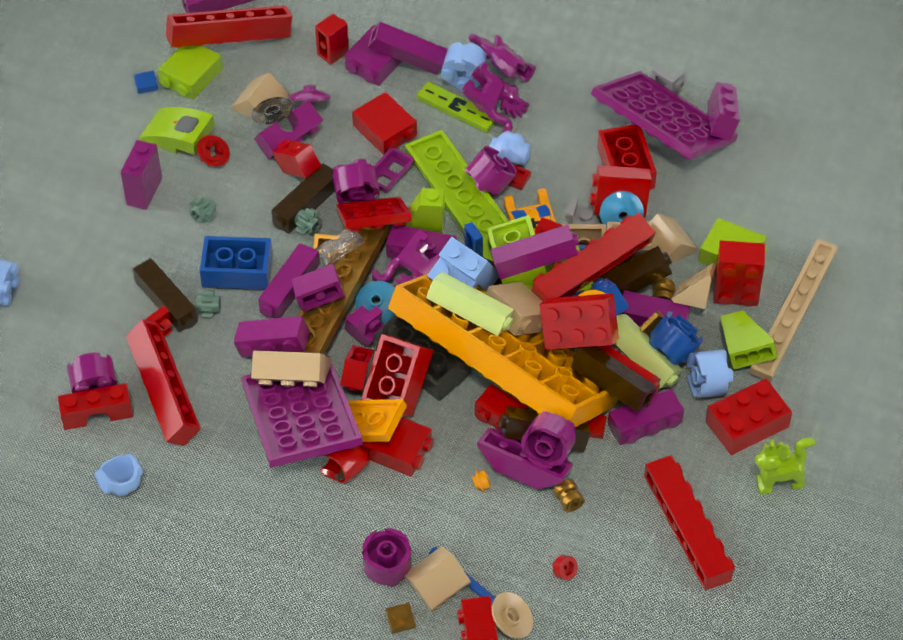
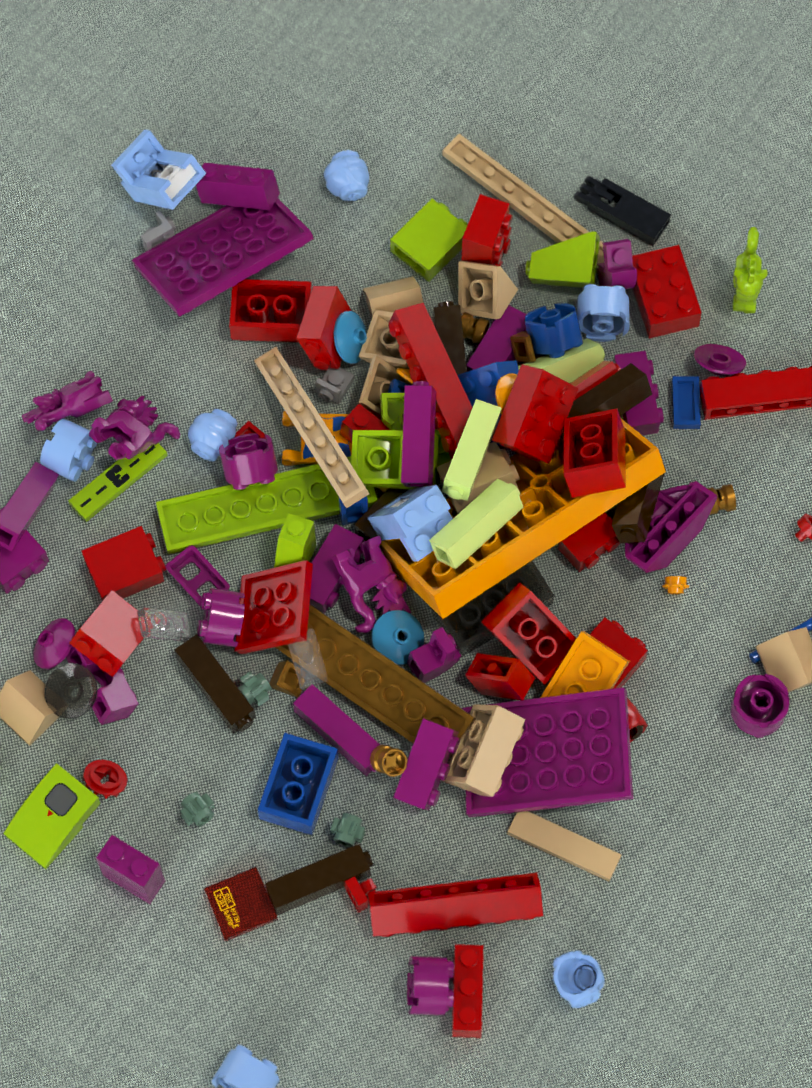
camera: 75 degrees left, 15 degrees up
(135, 251) = (240, 904): none -> clear red tile
(233, 451) = (564, 844): none -> tan tile
(261, 307) = (394, 759): none -> pearl gold wheel
(296, 158) = (159, 678): red brick -> none
(318, 287) = (371, 695): magenta brick -> none
(322, 121) = (109, 634): none -> brick
(340, 148) = (164, 624): none -> clear plate
(527, 198) = (311, 427): none -> tan plate
(528, 283) = (471, 450): none -> yellowish green brick
(548, 440) = (675, 491): magenta brick -> none
(553, 362) = (594, 453): none -> red brick
(644, 455) = (686, 402): none -> blue tile
(700, 469) = (720, 359): none -> magenta dish
(714, 56) = (156, 174): none -> light blue brick
(752, 368) = (617, 265): none -> magenta brick
(767, 181) = (347, 176): none -> light blue hair
(817, 380) = (631, 212): none -> black hinge

